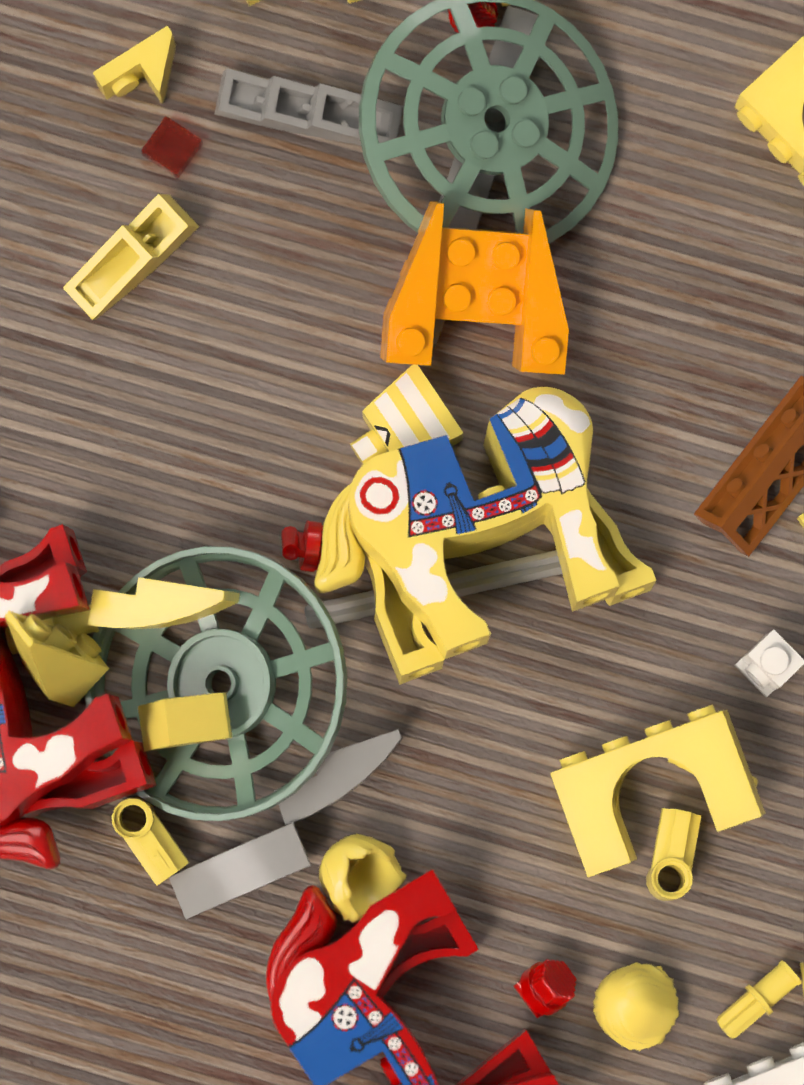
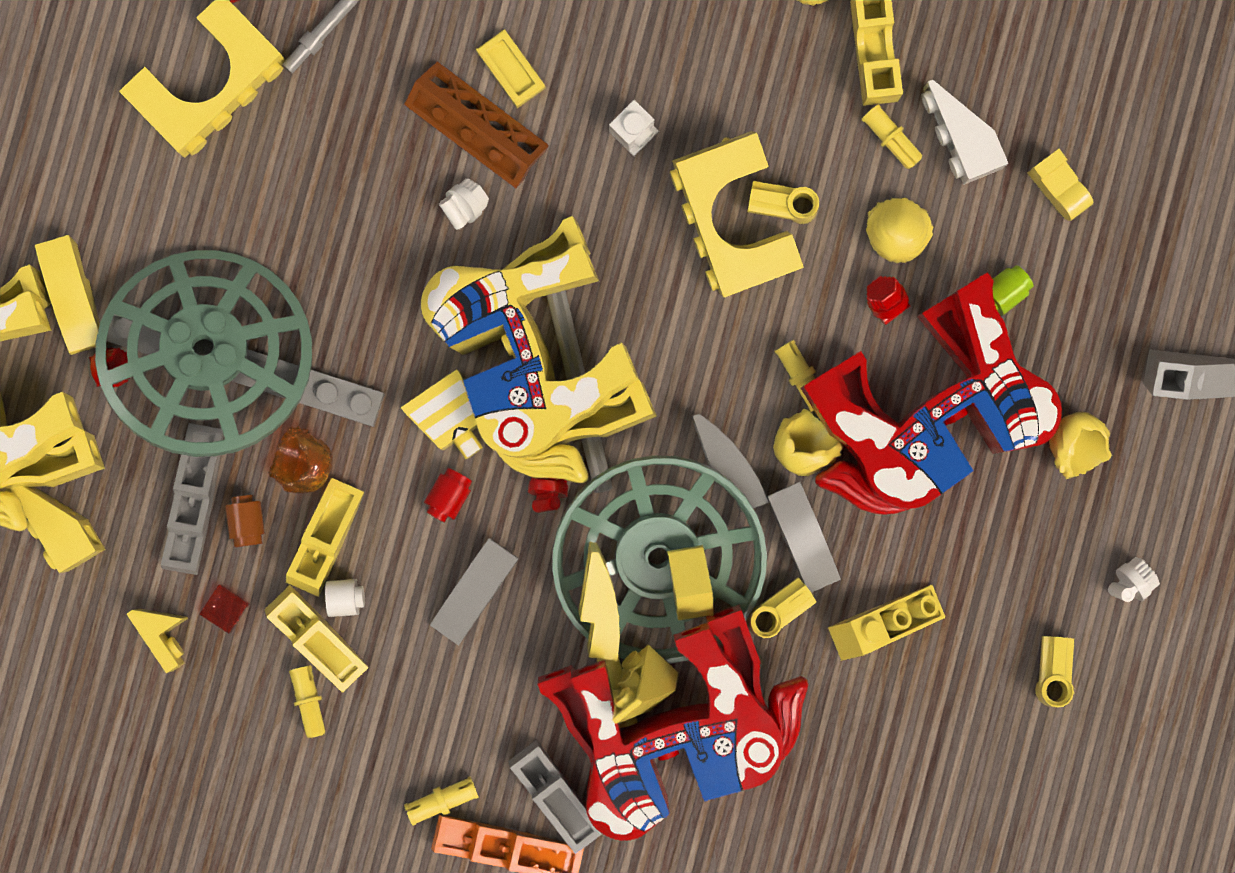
camera: 90 degrees left, 5 degrees up
(53, 245) = (307, 700): none -> light yellow axle
(127, 977) = (886, 623): none -> light yellow slope
(180, 290) = (344, 597): none -> white plate
(184, 452) = (474, 591): none -> light grey slope
(256, 268) = (324, 537): none -> light yellow slope
(278, 172) = (245, 521): none -> dark orange brick
(305, 421) = (448, 495): none -> red brick
(350, 241) = (301, 462): none -> clear orange hair
(461, 866) = (796, 367): none -> light yellow pin
(478, 279) = (334, 358): light orange wedge -> none
(674, 447) = (464, 203): none -> white piece

